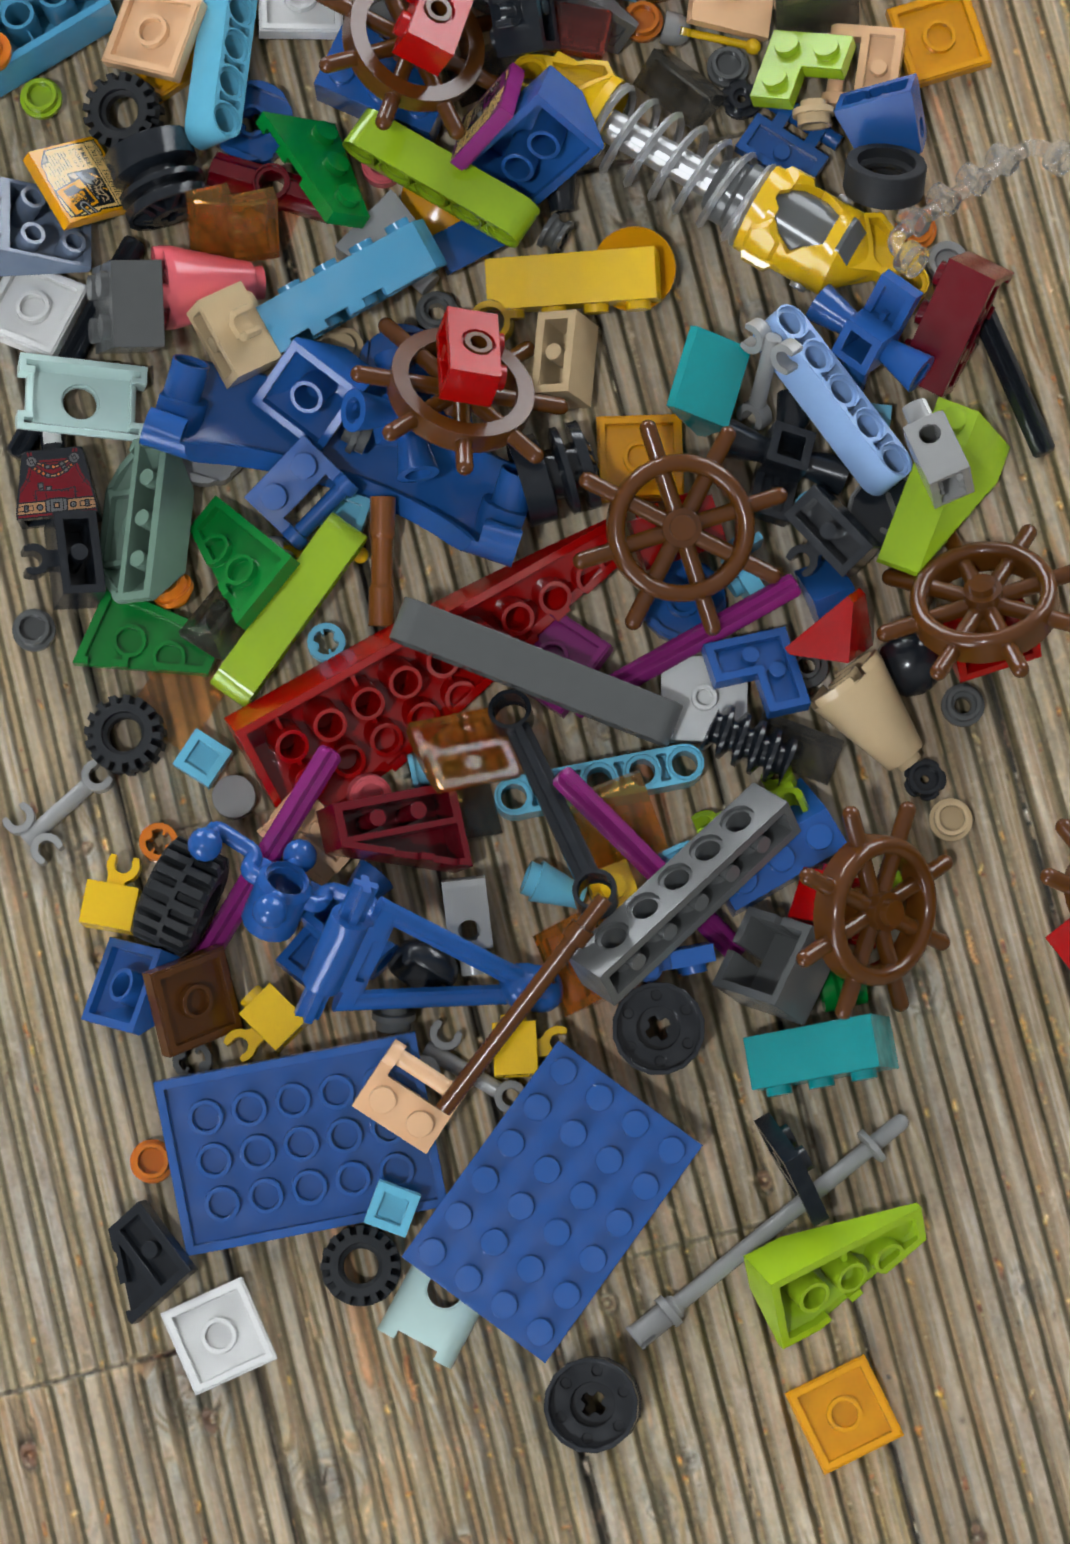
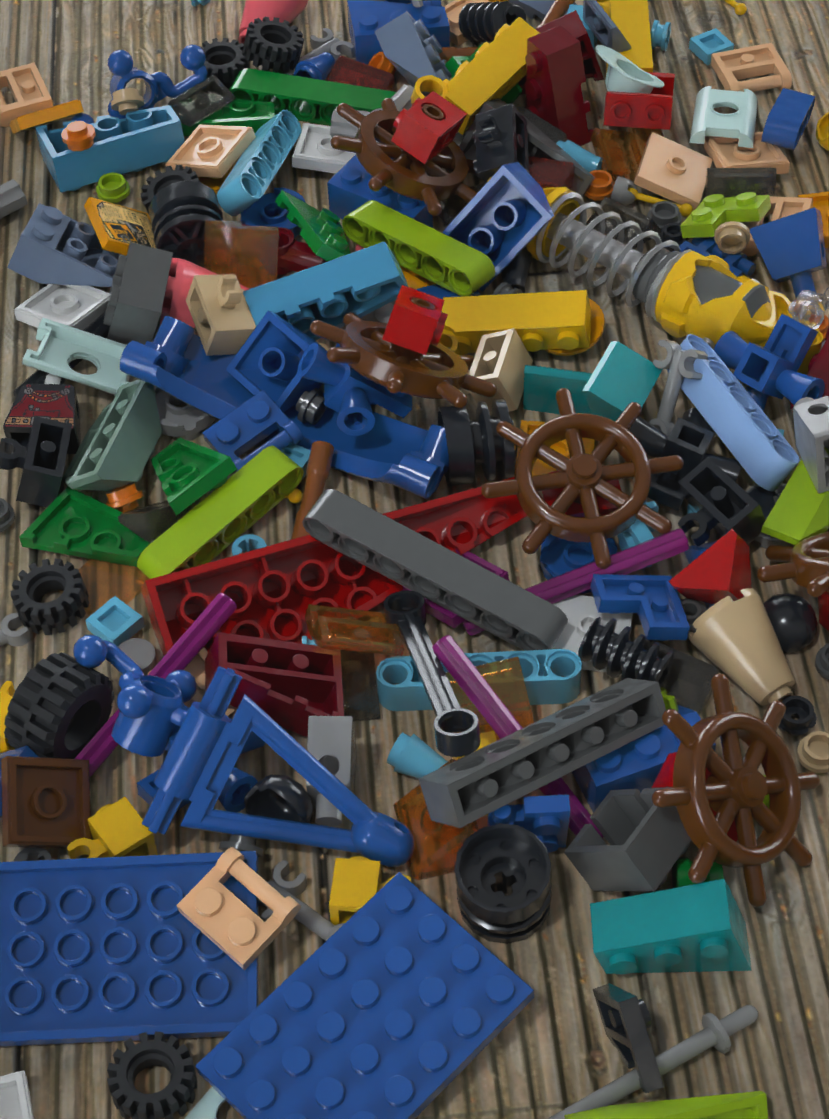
camera: 10 degrees right, 30 degrees down
(392, 1208) = (196, 1015): medium azure plate -> none
(488, 116) = (459, 198): magenta tile -> none
(577, 936) = (431, 755): reddish brown bar -> none
(637, 359) = (544, 382): none -> teal slope
(884, 176) = (789, 268): black tyre -> none

